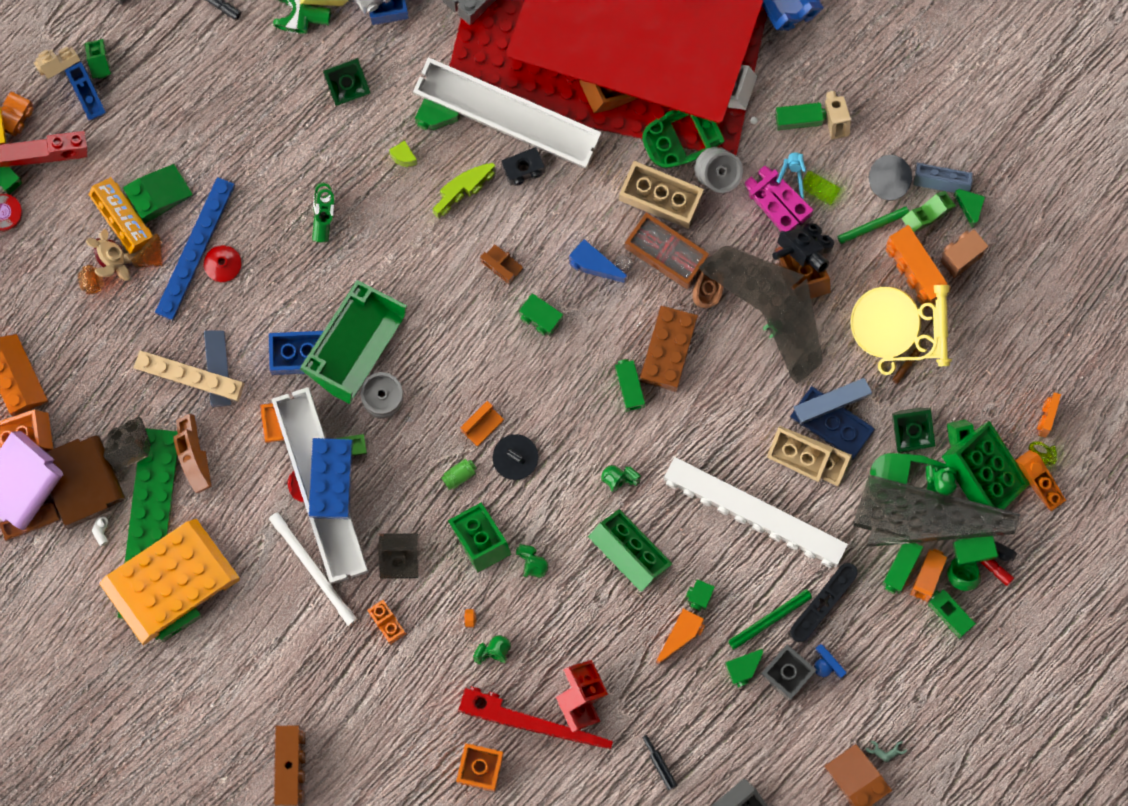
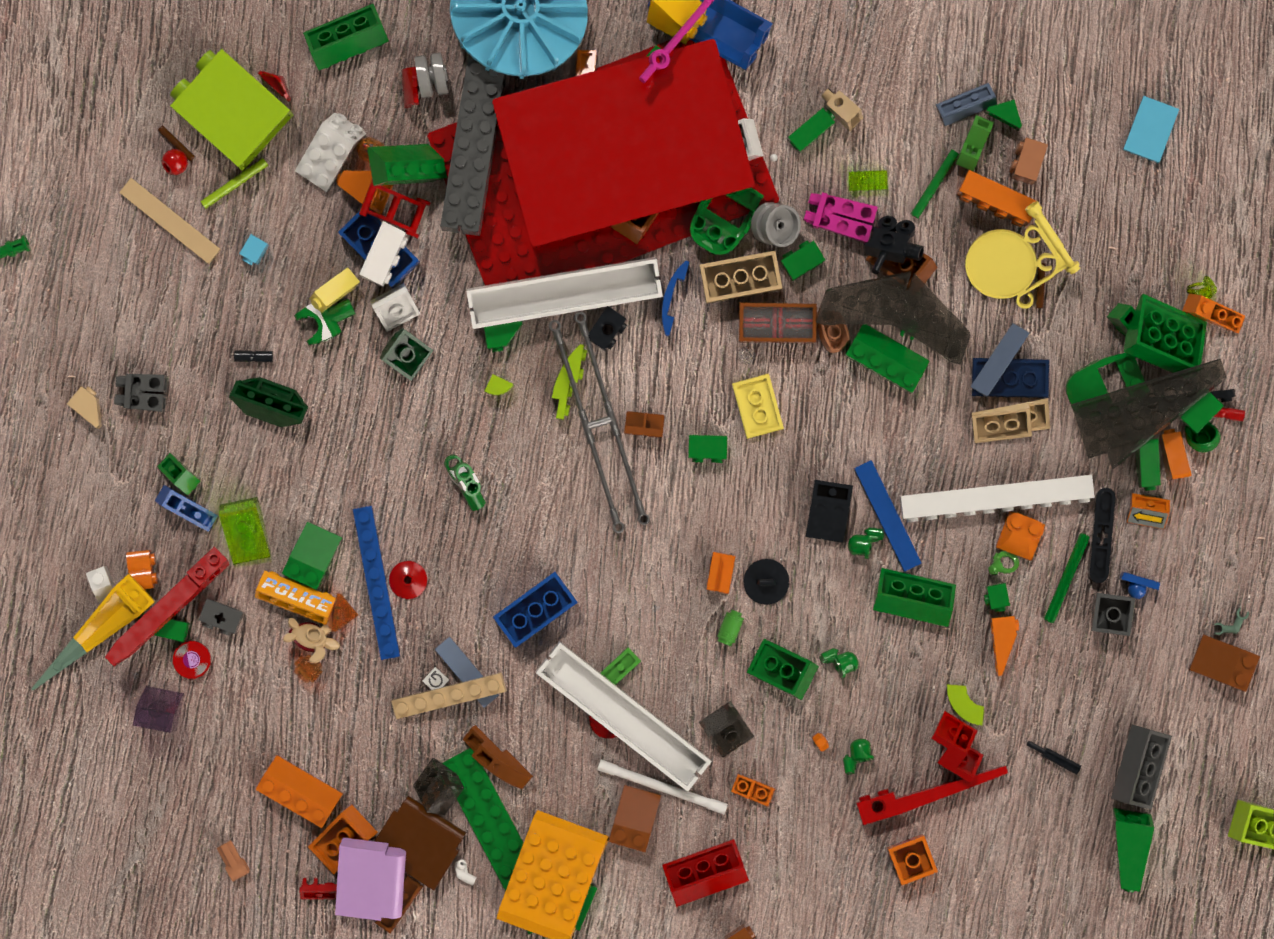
camera: 35 degrees left, 10 degrees up
(47, 182) = (214, 608): none -> dark grey brick
(52, 64) = (148, 503): tan plate -> none
(118, 137) = (244, 530): none -> clear neon green slope
(188, 357) = (435, 679): none -> white tile
(208, 46) = (269, 401): none -> dark green wedge
(271, 425) = (543, 689): orange tile -> none
(271, 579) = (634, 818): none -> dark orange slope
(298, 664) = (705, 873): none -> red slope
(330, 478) = (632, 707): blue brick -> none
(354, 341) = (569, 576): green slope -> none
(362, 39) = (395, 307): none -> white bracket
(382, 406) = (617, 615): light grey wheel -> none
(476, 239) = (610, 418): none -> flat silver bar
(593, 262) = (718, 373): blue slope -> none
(605, 309) = (757, 406): none -> light yellow tile
(606, 431) = (828, 511): none -> black slope
(611, 668) = (964, 705): none -> lime tile
(612, 161) = (680, 274): none -> blue slope
(629, 385) = (821, 458): green brick -> none
(653, 469) = (887, 515): none -> blue tile
(668, 348) = (834, 405): dark orange brick -> none
(716, 569) = (997, 566): none -> bright green piece
(722, 215) = (802, 260): none -> green brick
(738, 339) = (887, 358): none -> green slope
(742, 668) = (1072, 633): green slope -> none
(754, 557) = (1020, 535): none -> orange slope
(795, 164) = (835, 175): medium azure plant -> none
(876, 608) = (1148, 511): none -> panel
(890, 177) = (923, 133): shield -> none
(913, 429) = (1082, 339): dark green slope -> none
(942, 479) = (1138, 370): green piece -> none
(950, 613) = (1213, 475): green brick -> none
(1049, 407) = (1185, 247): orange plate -> none
(1085, 296) = (1151, 129): none -> medium azure tile

